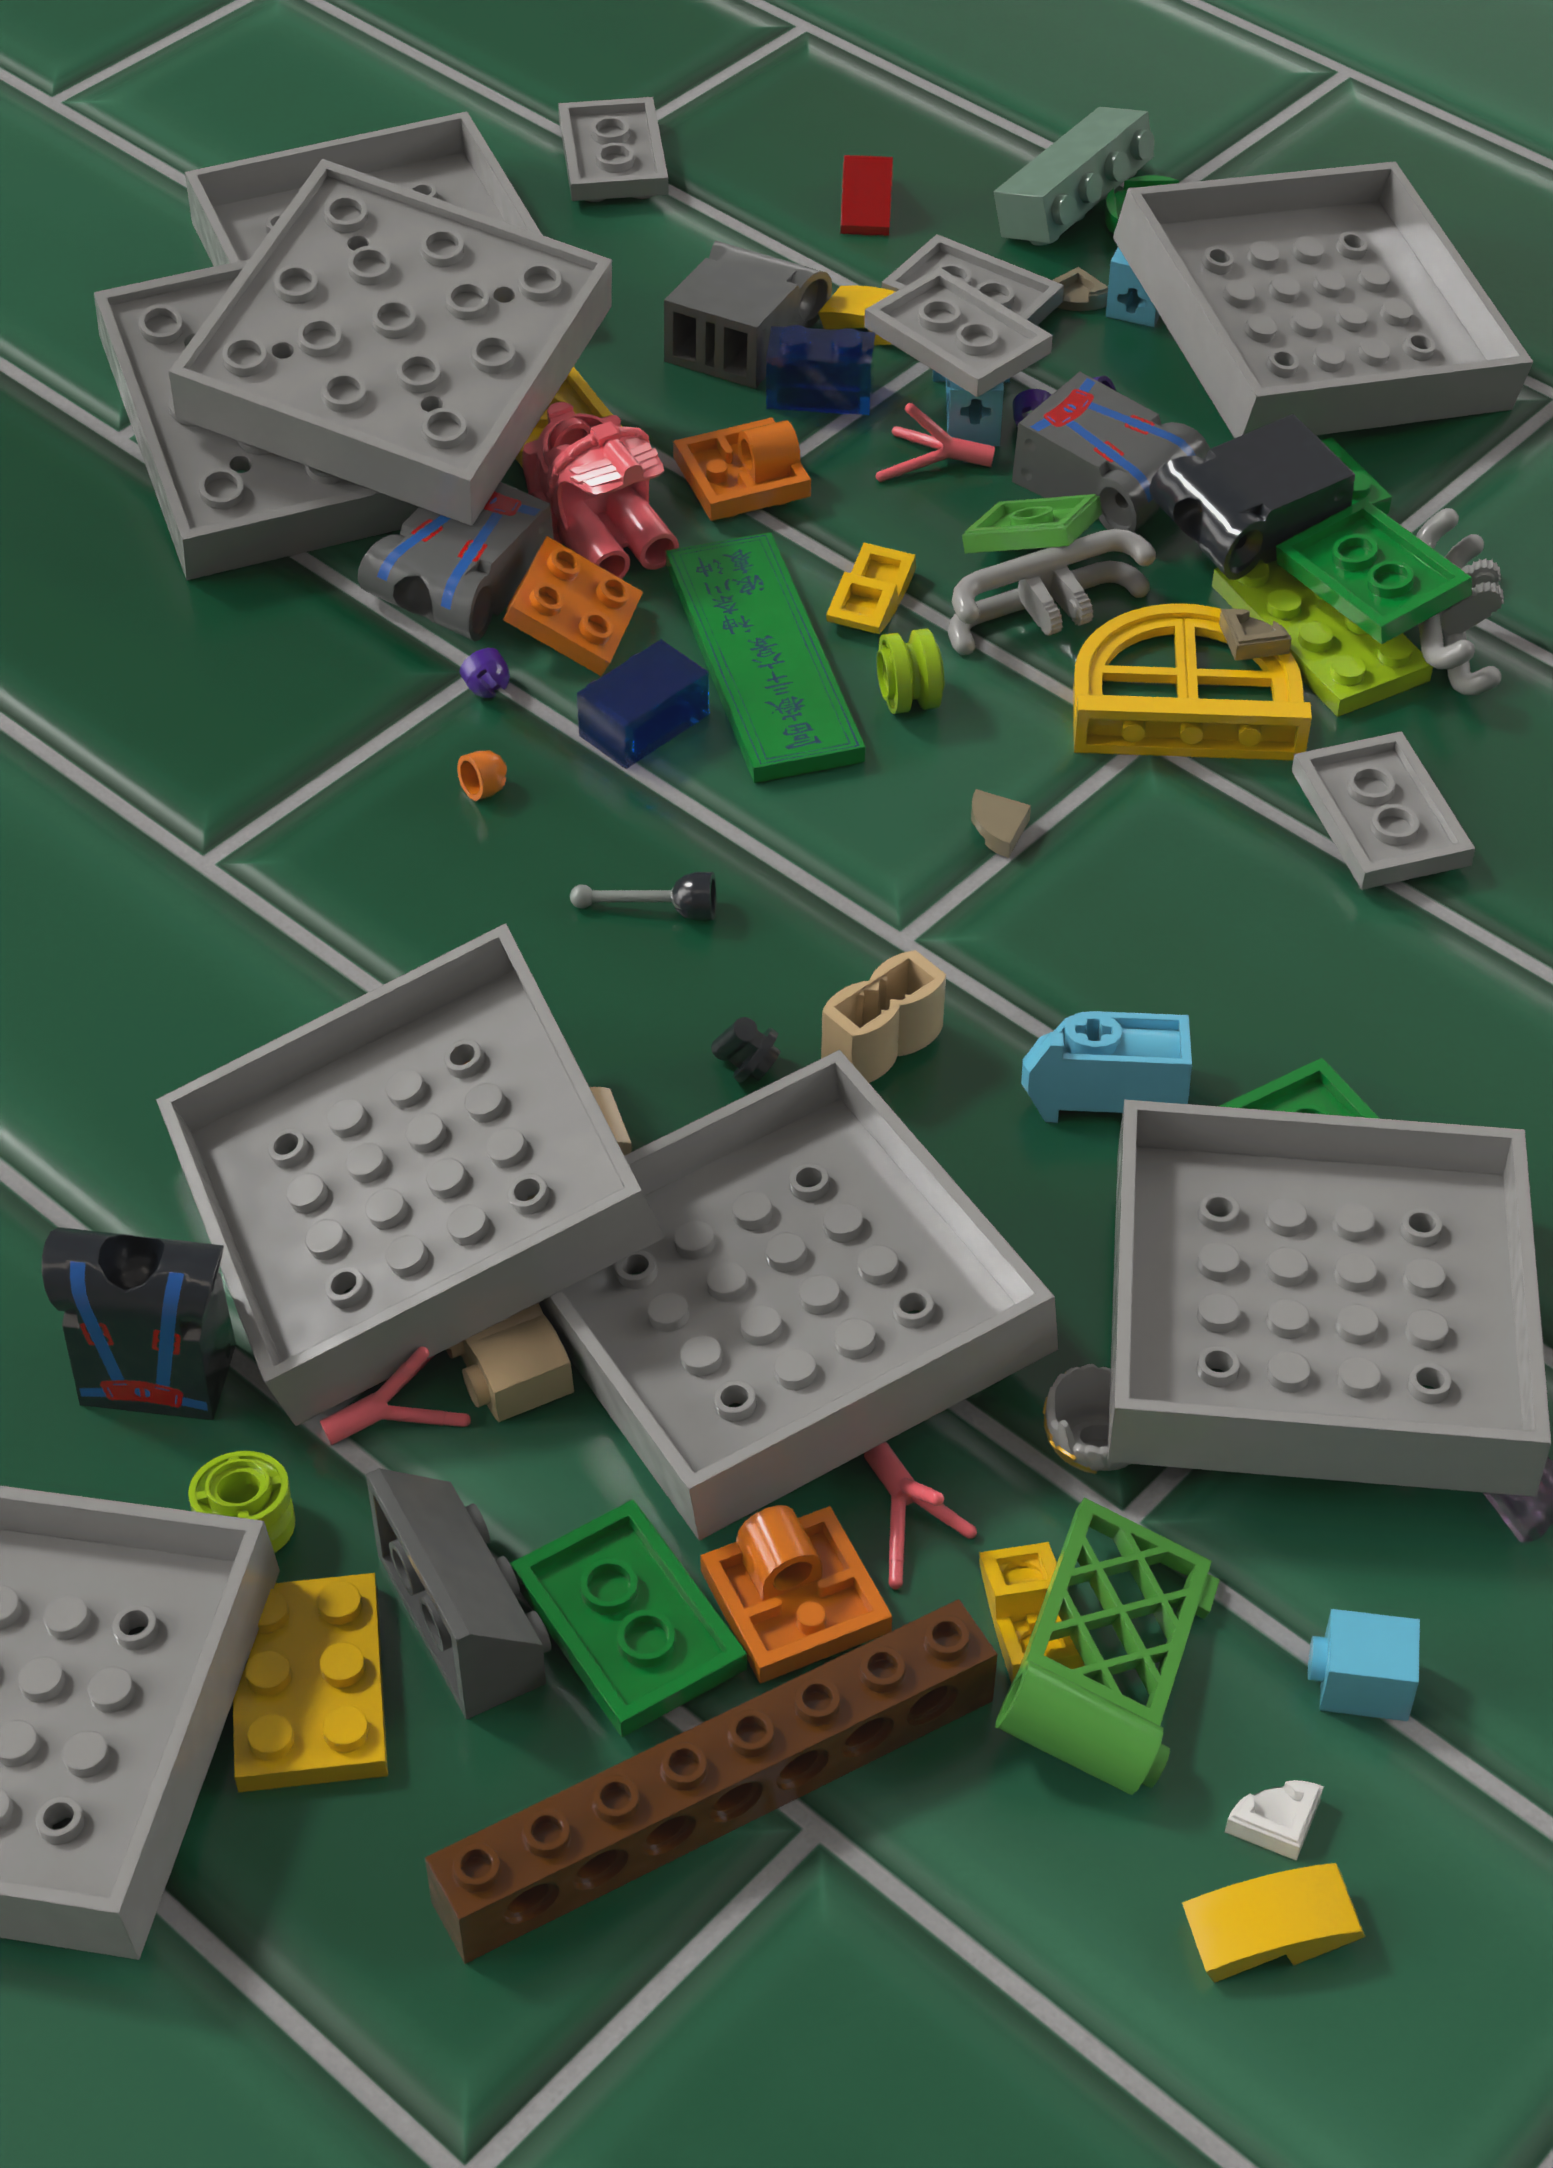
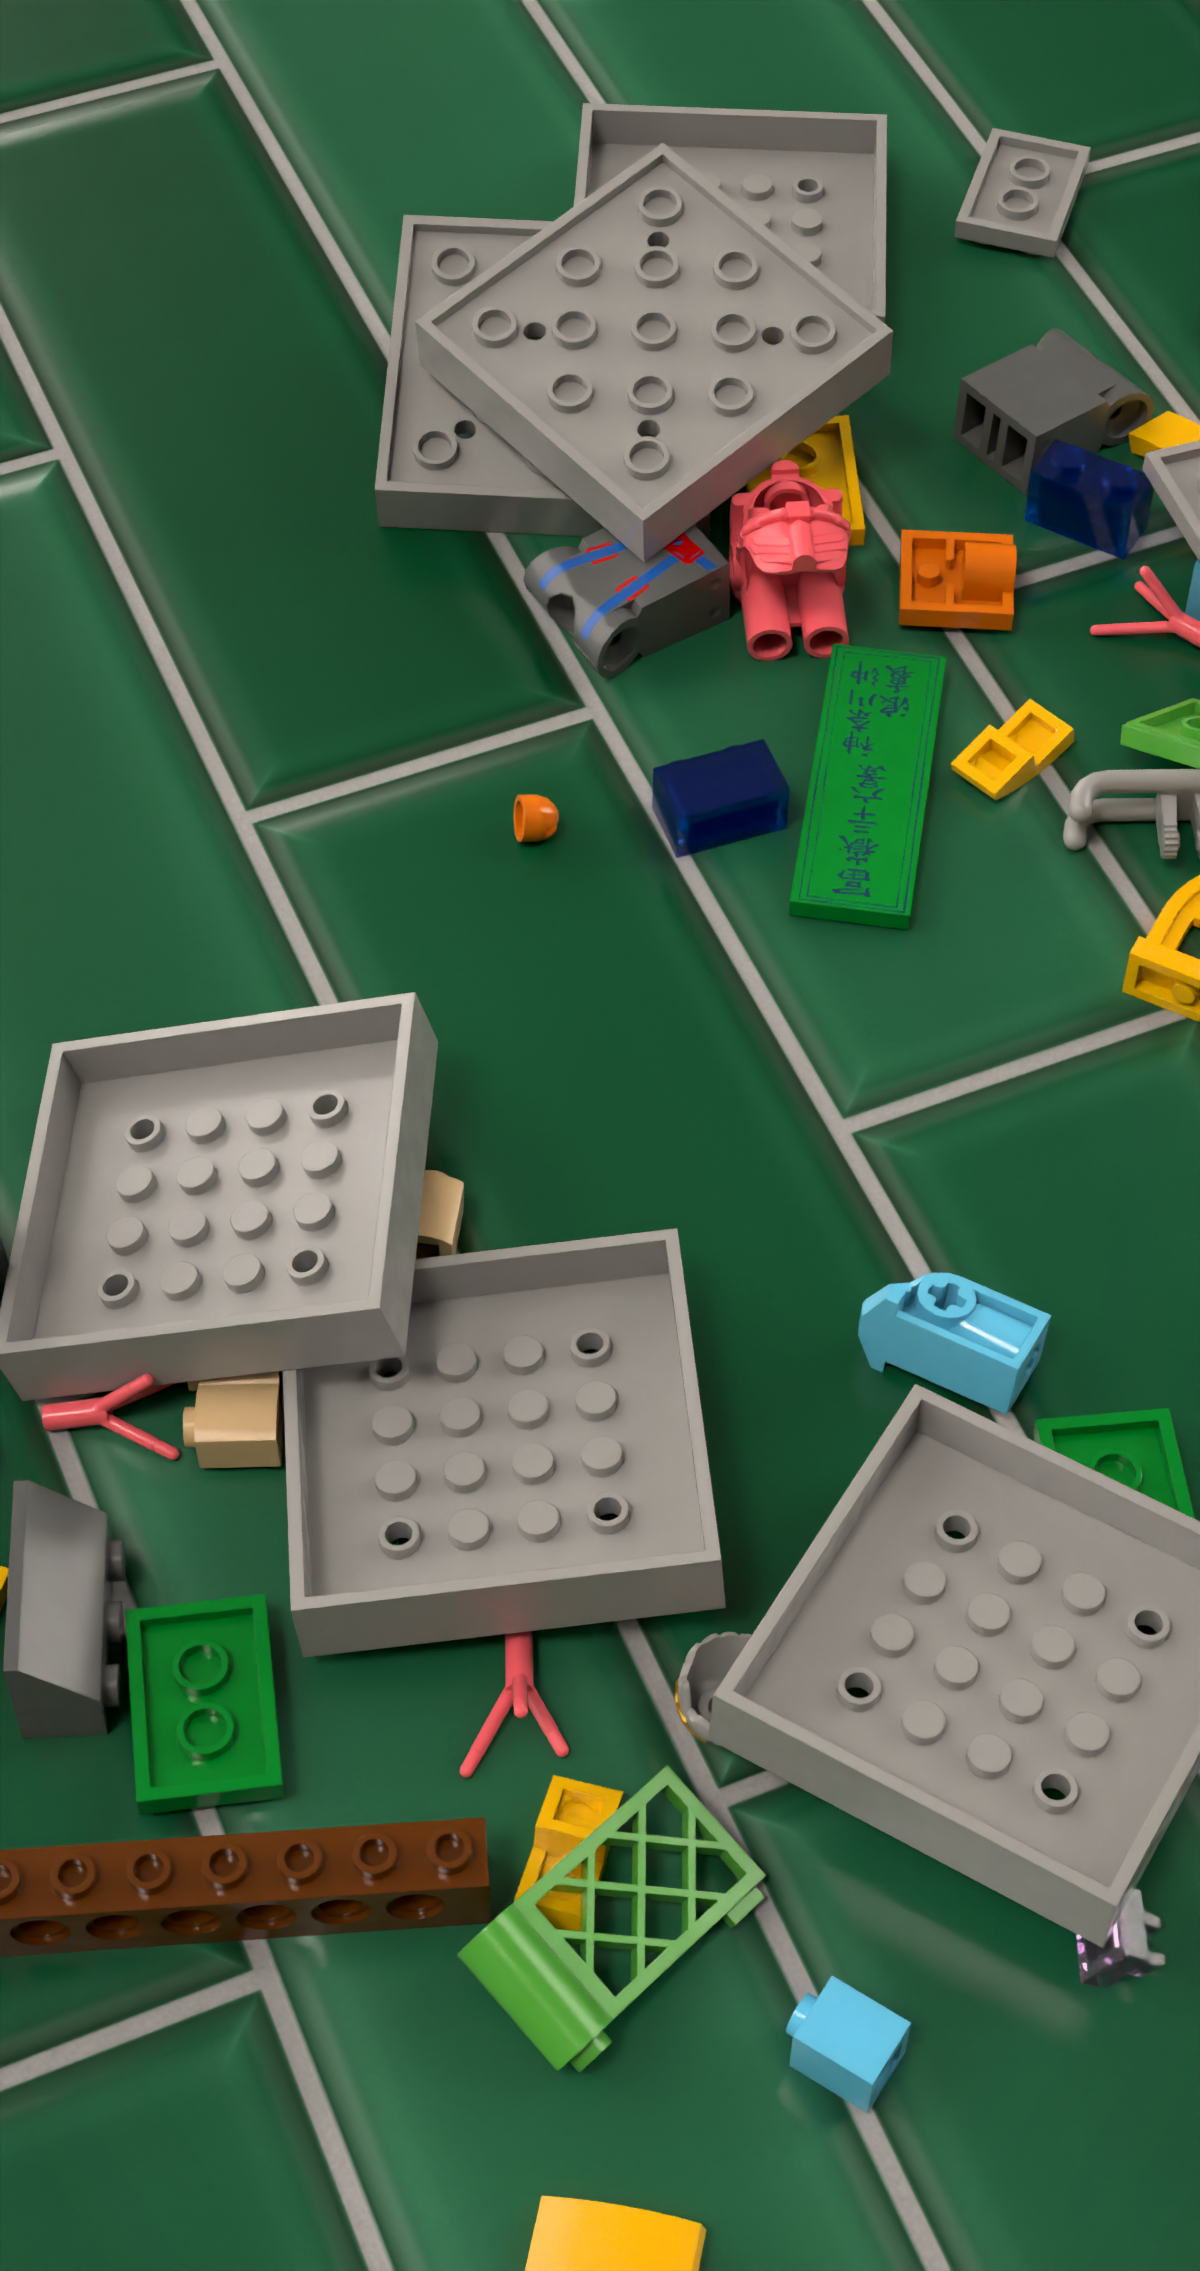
camera: 25 degrees right, 5 degrees up
(485, 672) = (593, 715): dark purple hinge -> none
(573, 606) = (708, 674): orange plate -> none
(692, 896) = (659, 1012): hinge -> none
(747, 1049) = (624, 1194): black plate -> none
(794, 1590) = (362, 1741): orange plate -> none
(887, 1015) = (757, 1206): tan brick -> none
(910, 671) = (993, 852): lime wheel -> none
(999, 820) = (1000, 1039): dark tan tile -> none
(1276, 1817) = (684, 2152): white tile -> none

